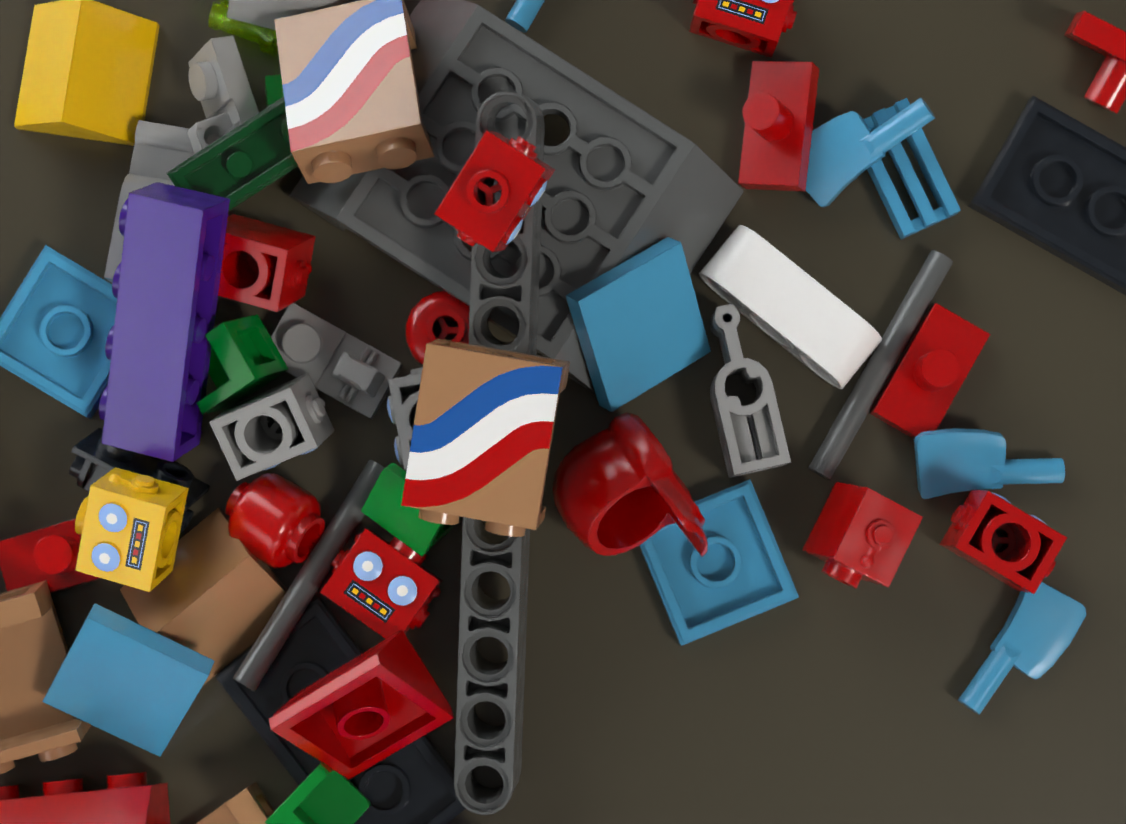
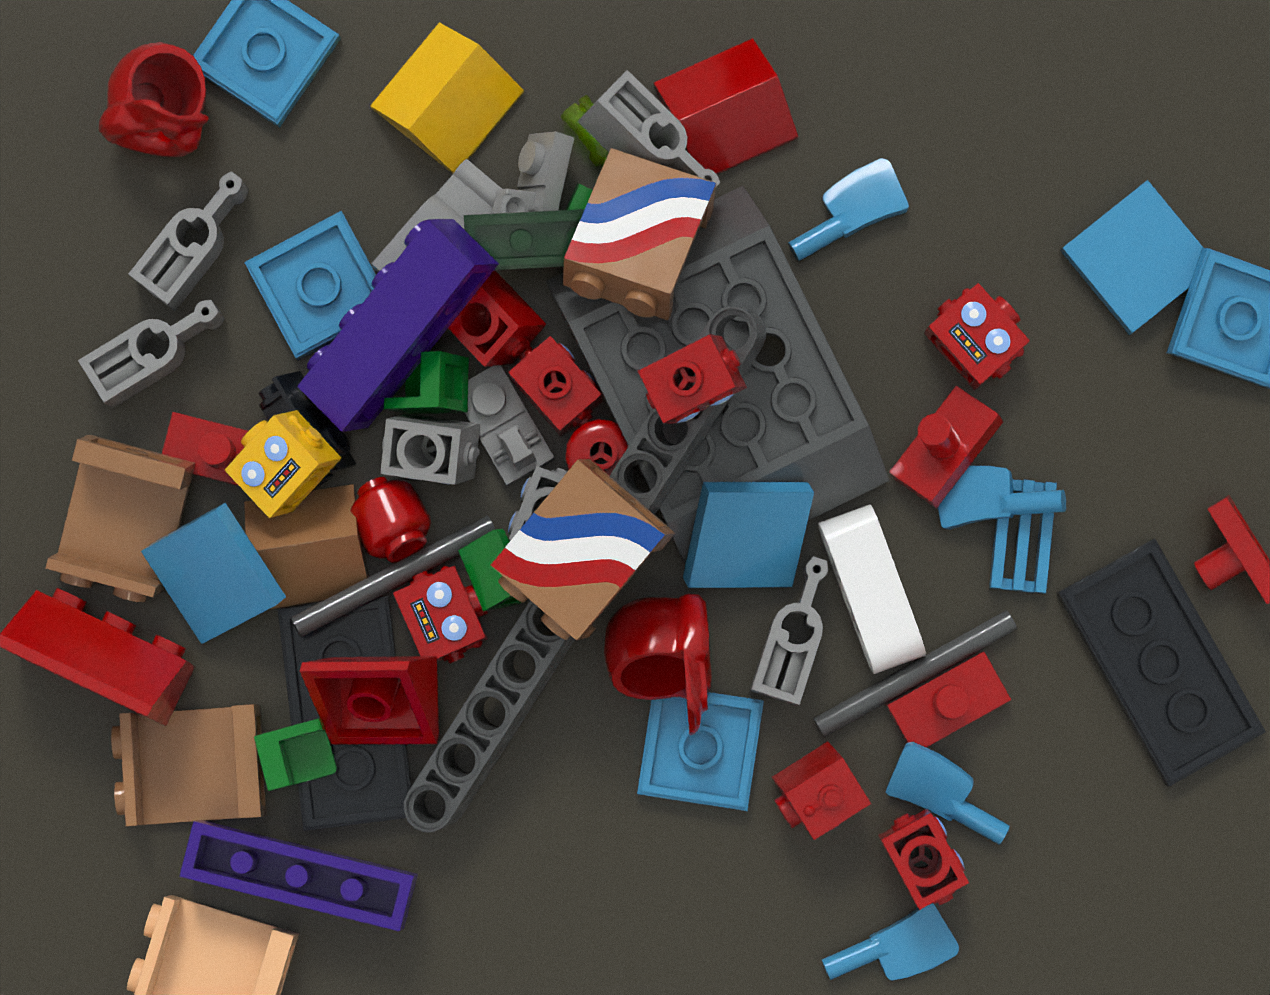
camera: 35 degrees right, 0 degrees up
(379, 310) = (562, 409): none -> red head

